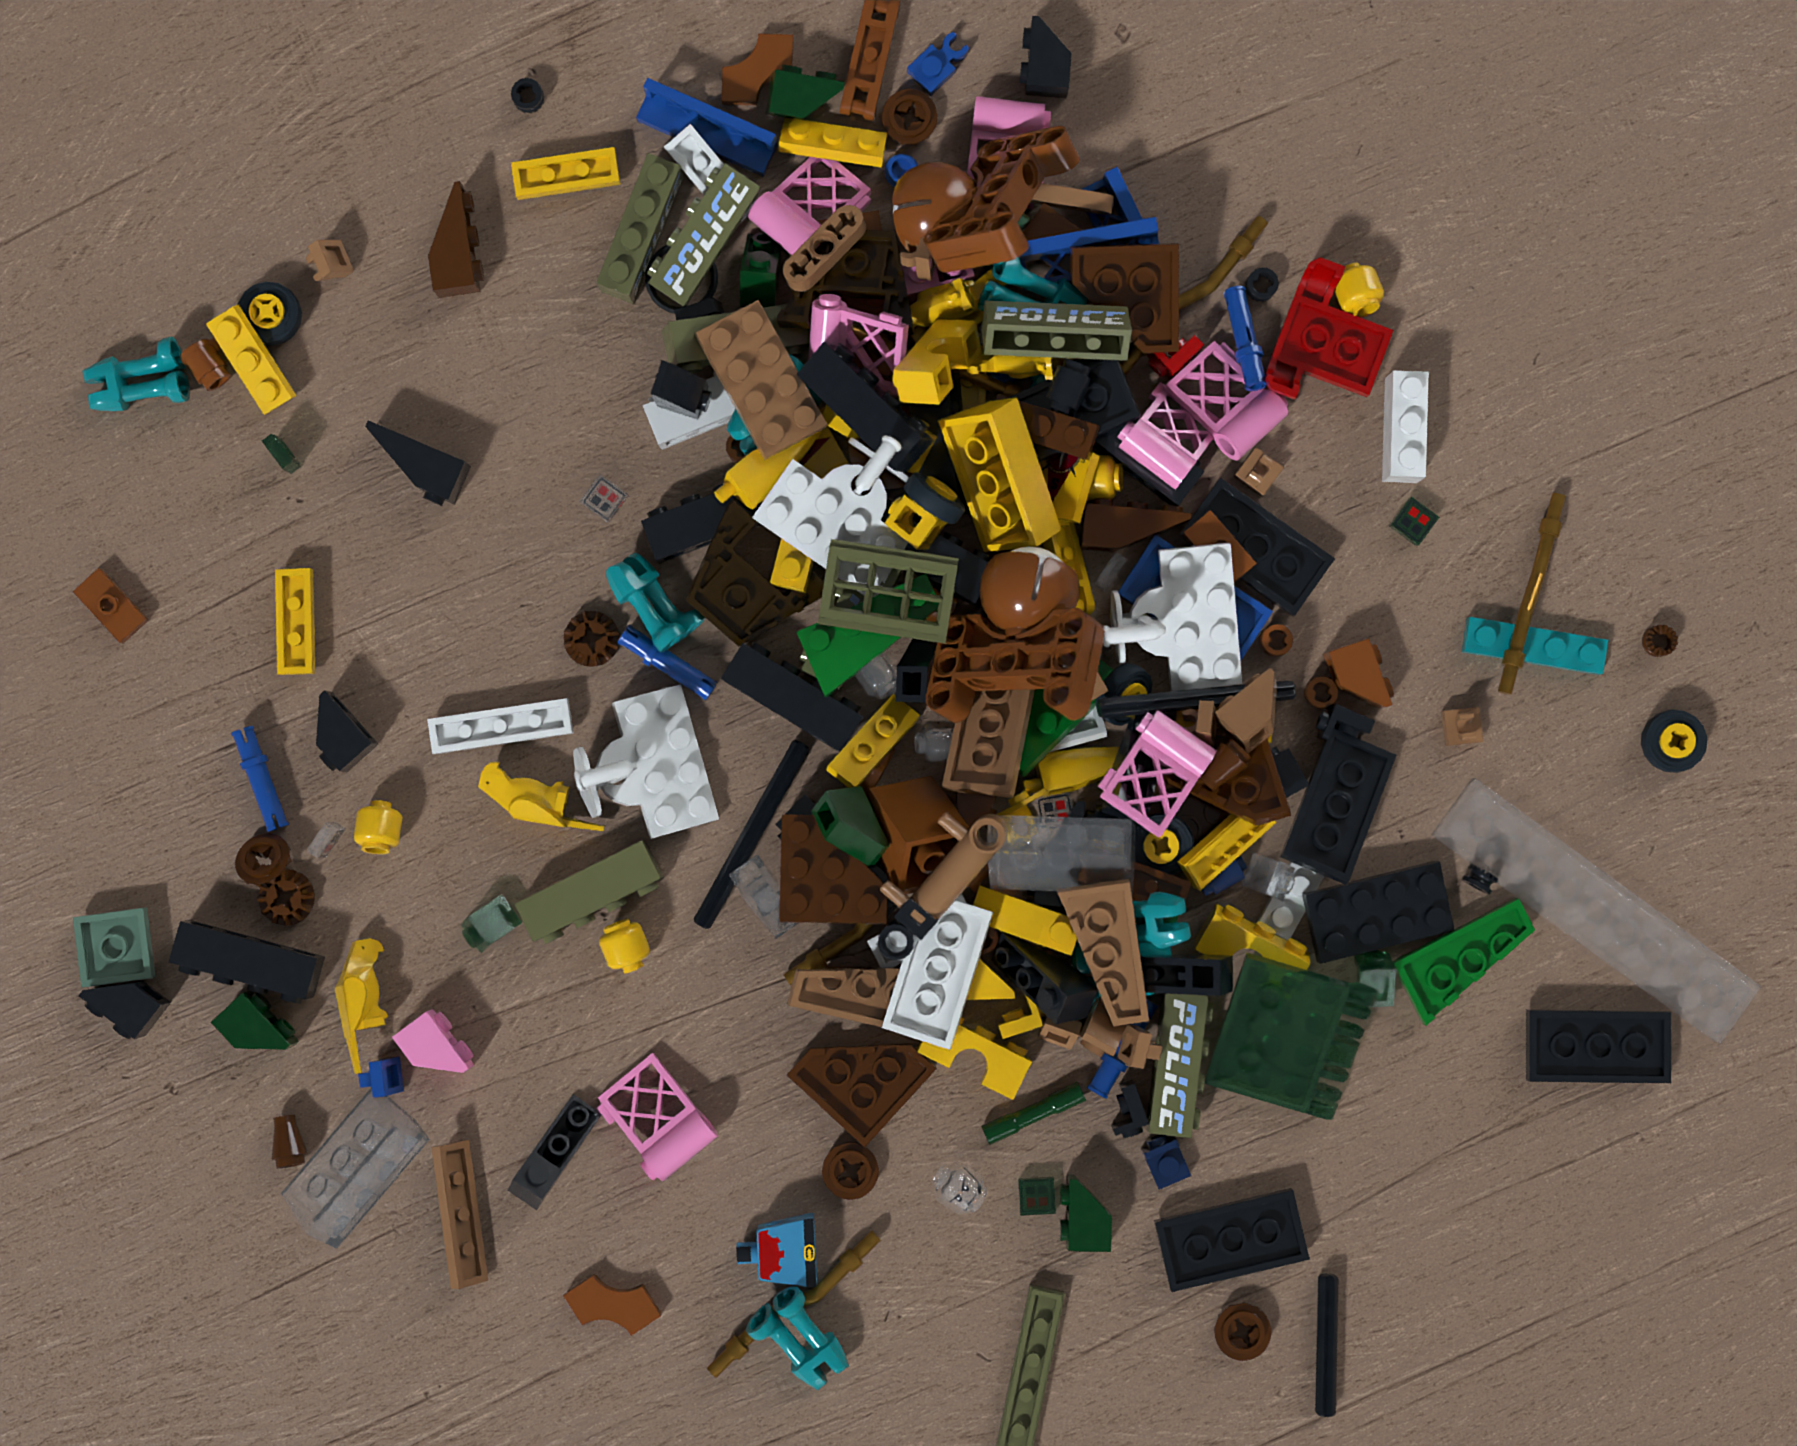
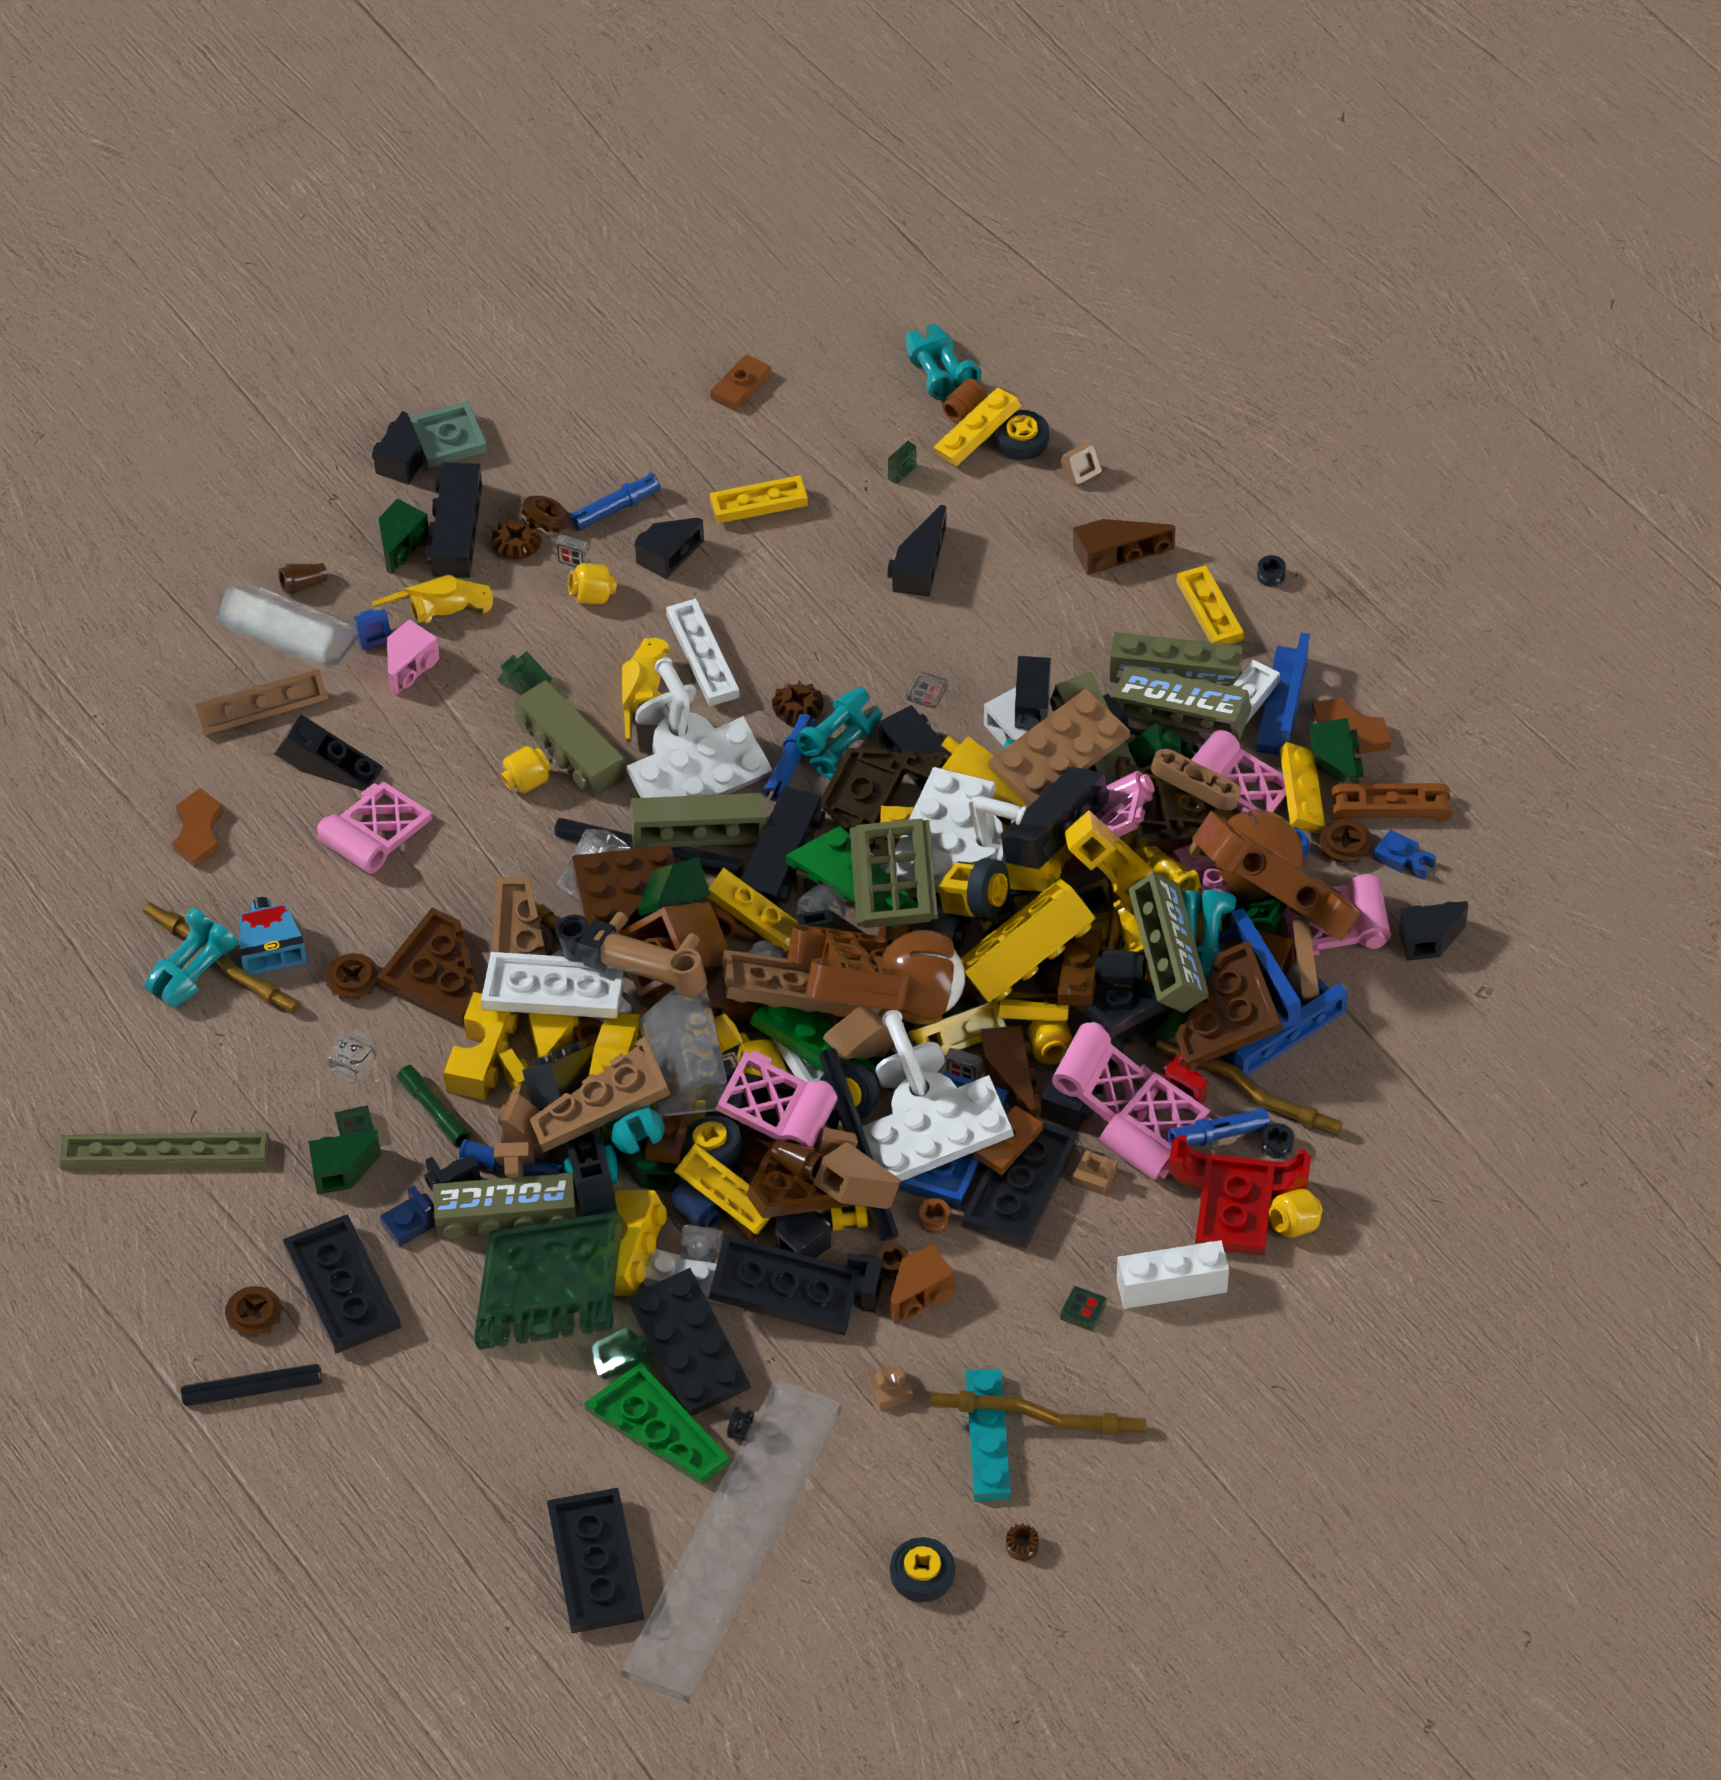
camera: 80 degrees right, 35 degrees down
(740, 777) = (697, 820): none -> olive brick

